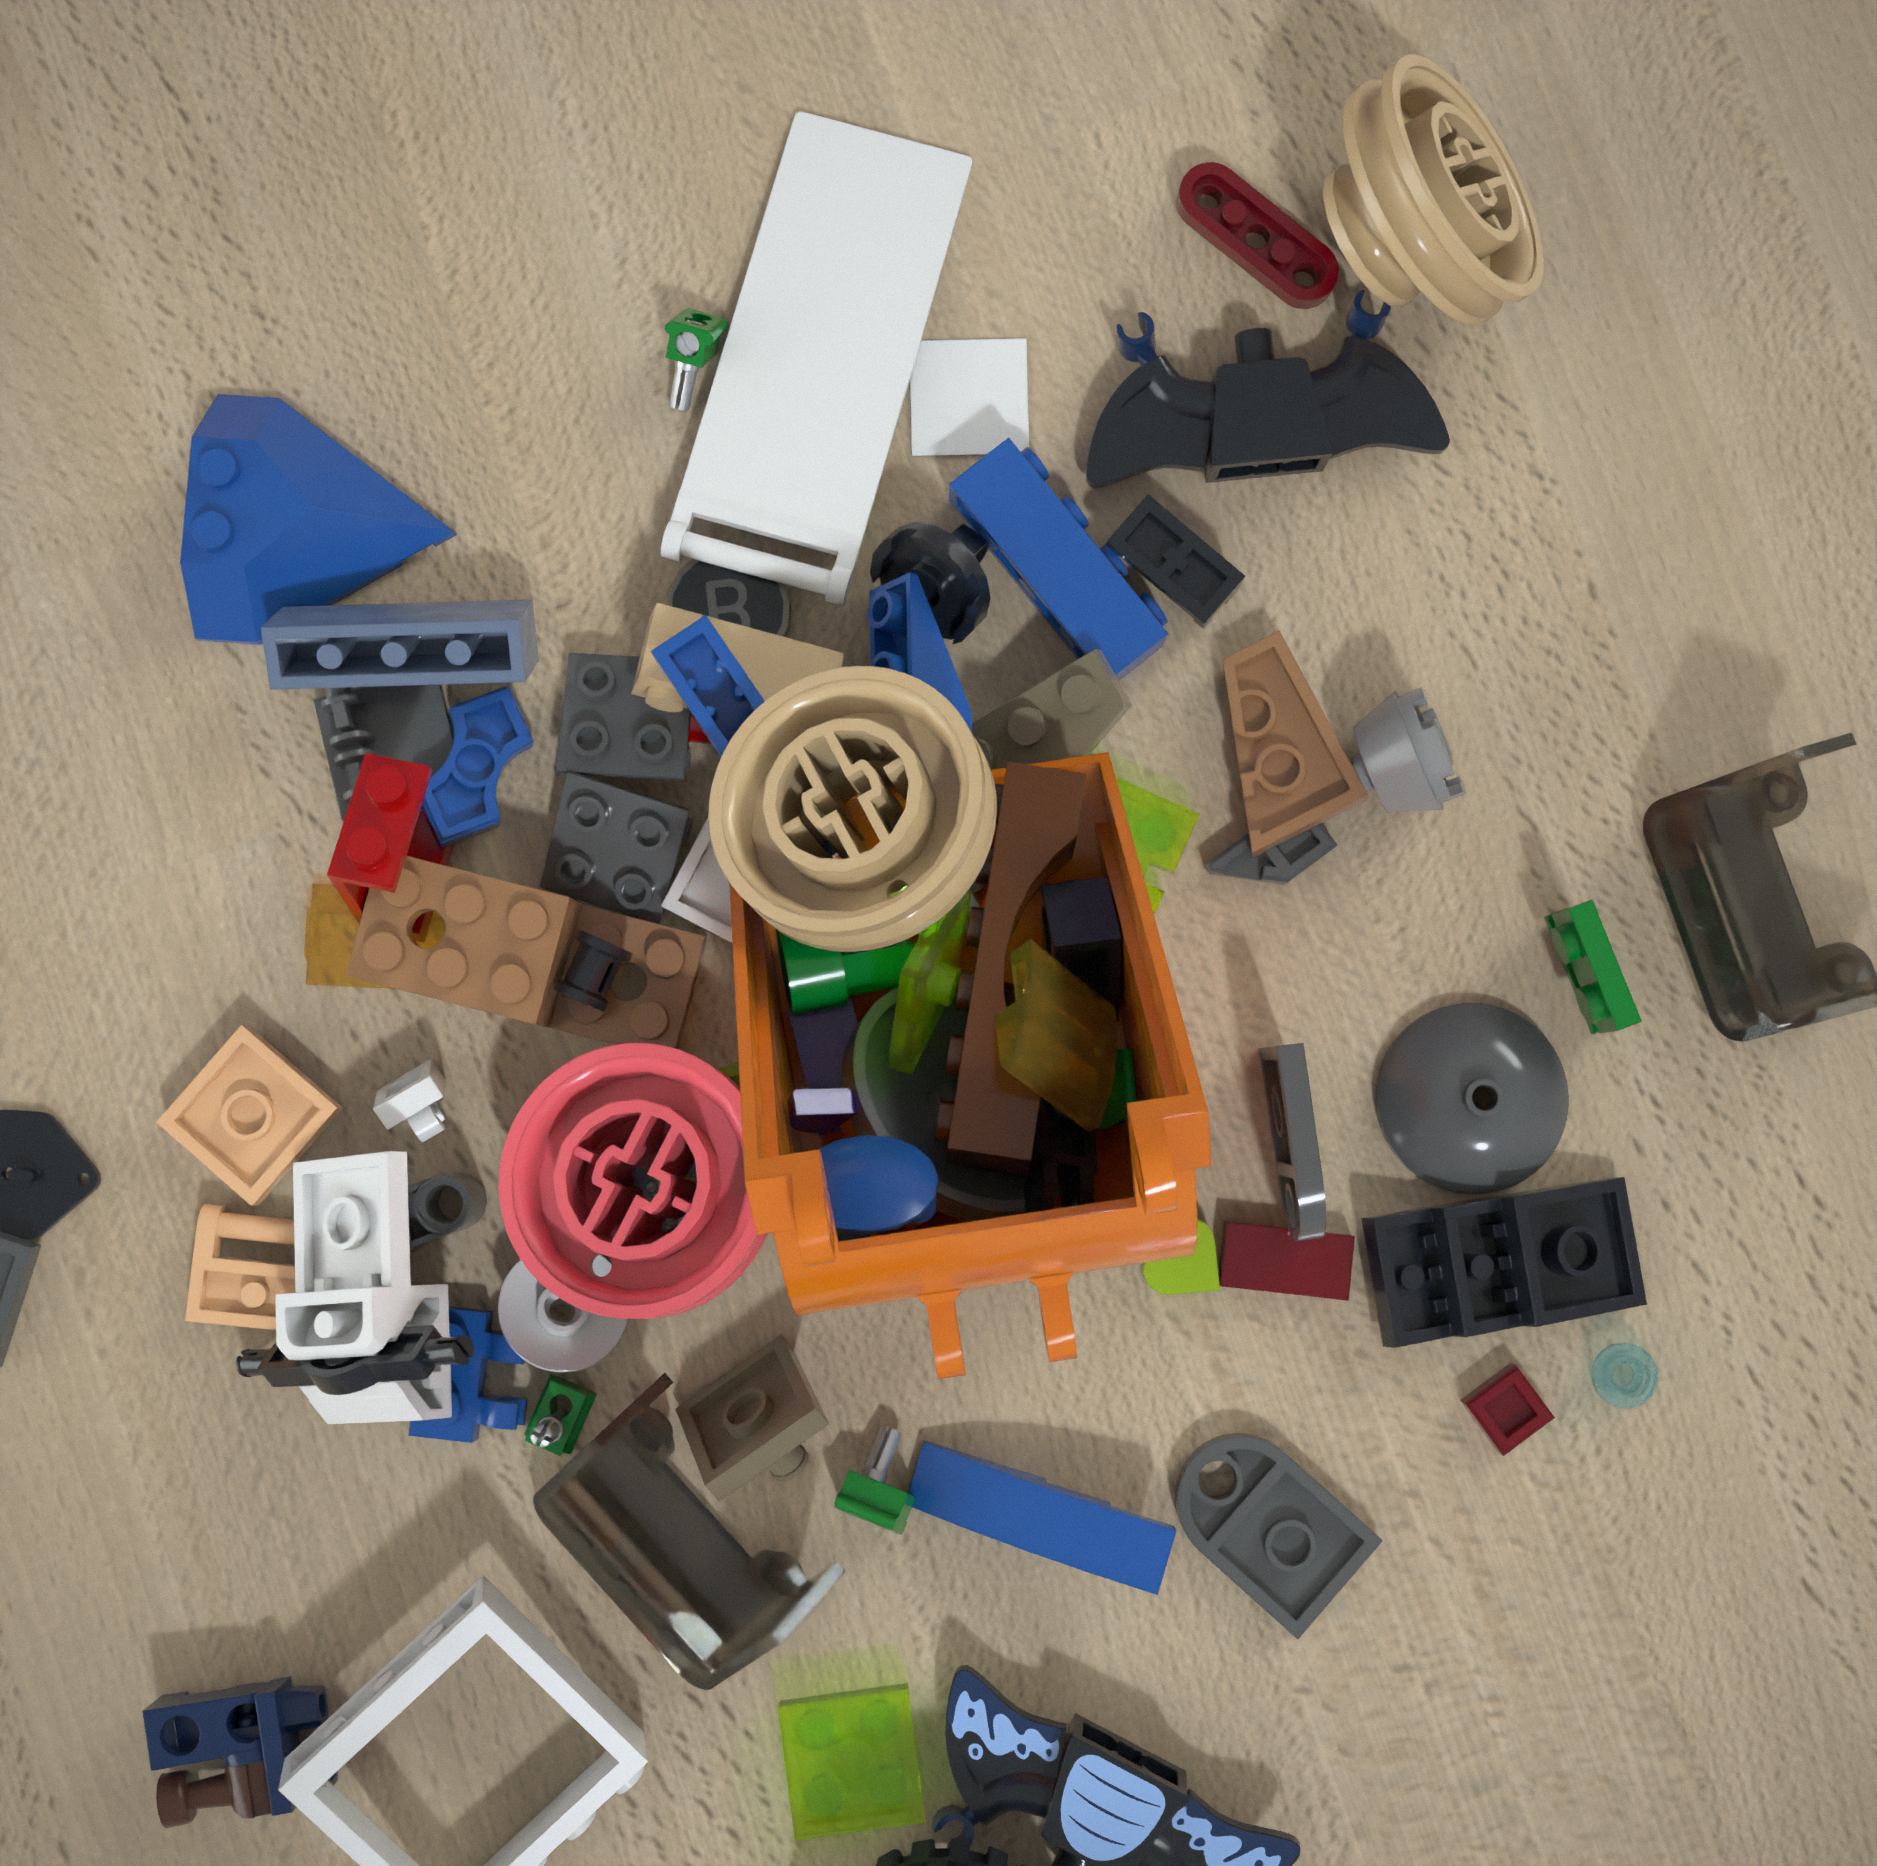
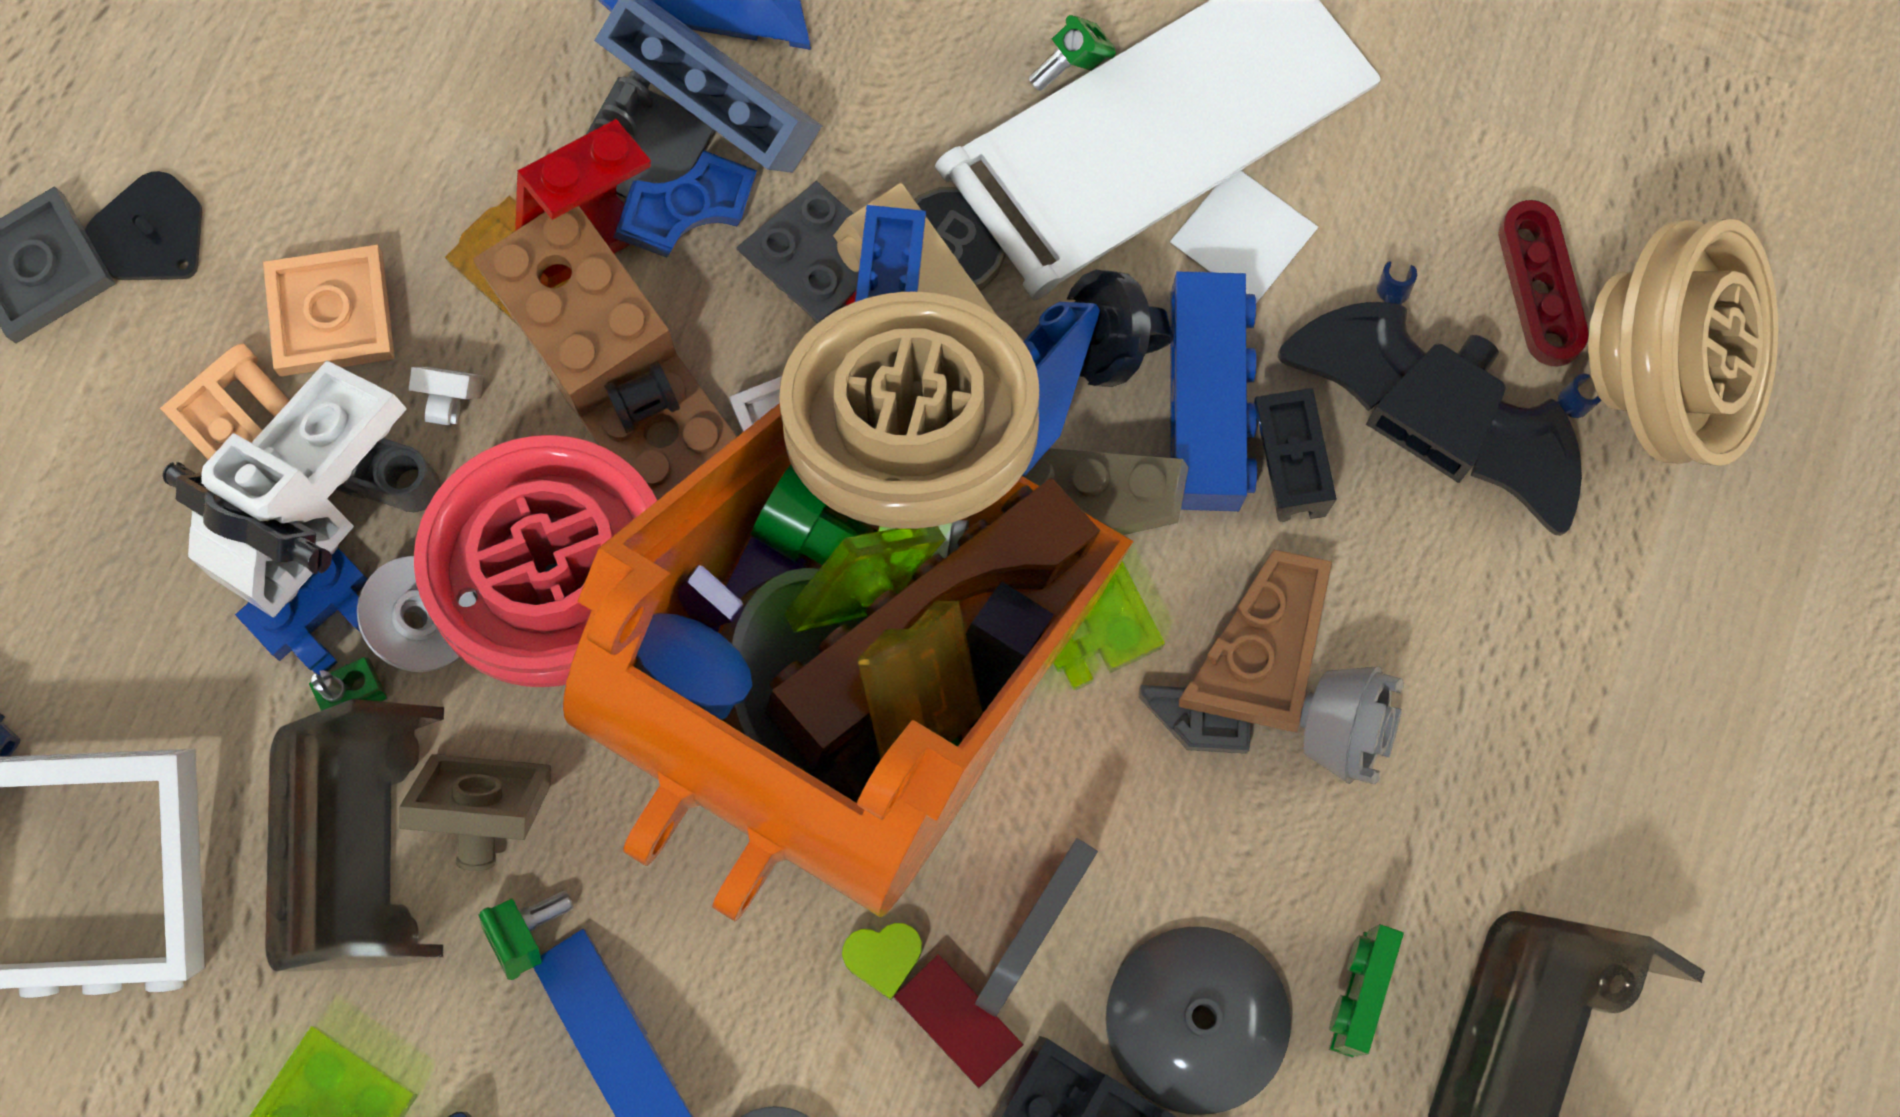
camera: 35 degrees right, 10 degrees down
(614, 847) = (732, 332): dark grey hinge -> none

